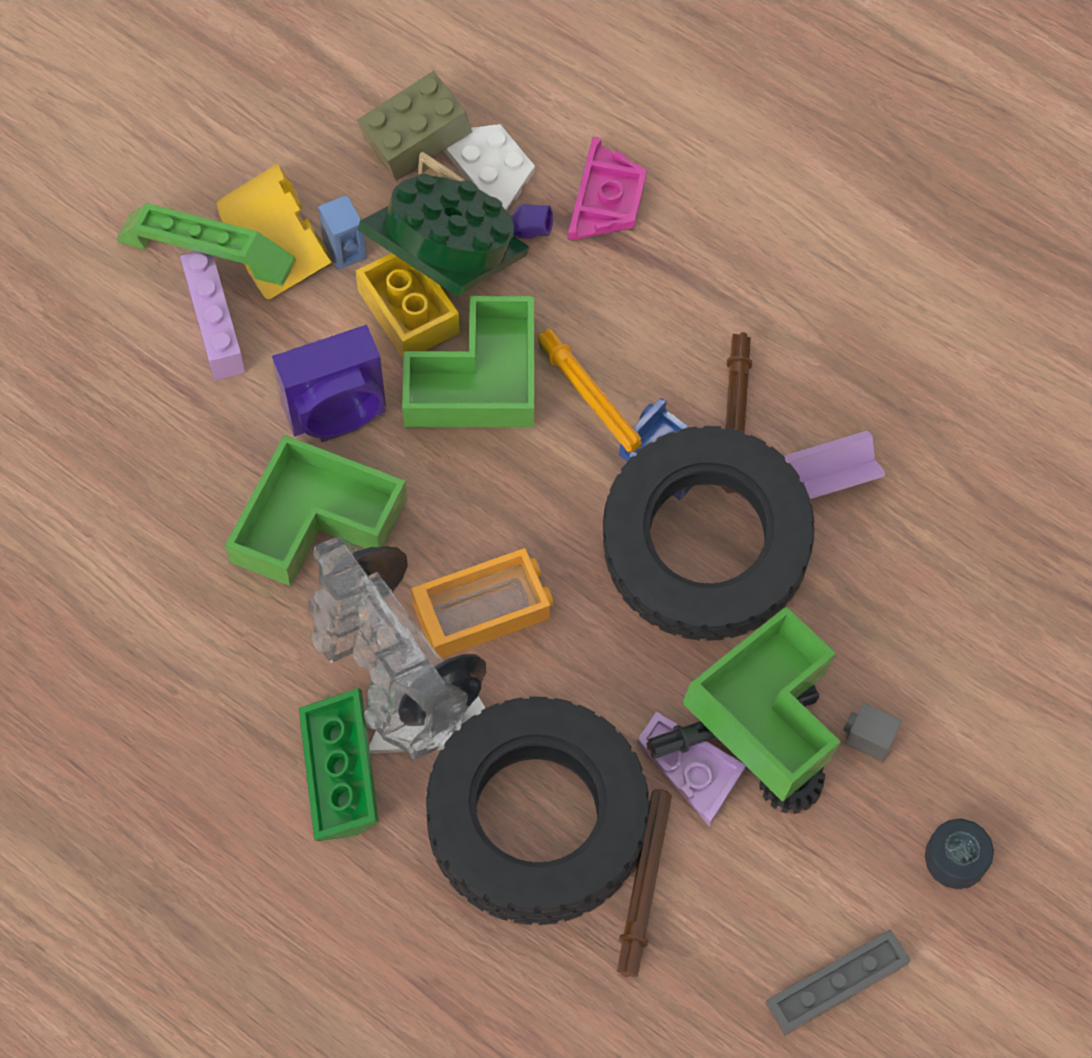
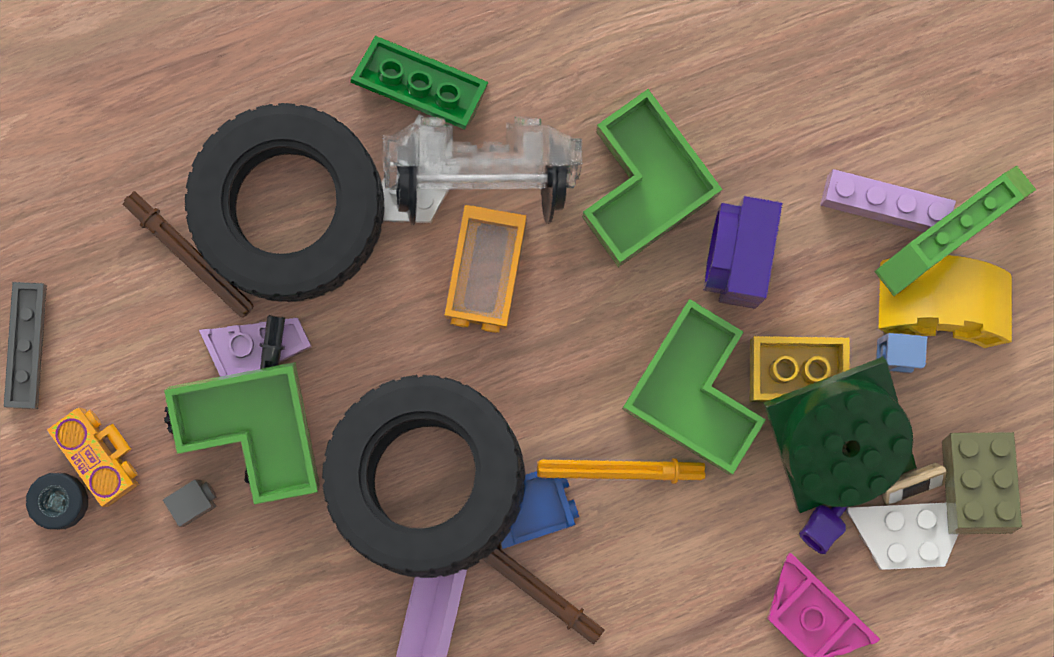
camera: 125 degrees right, 20 degrees up
(892, 860) = (84, 447): none -> light orange piece

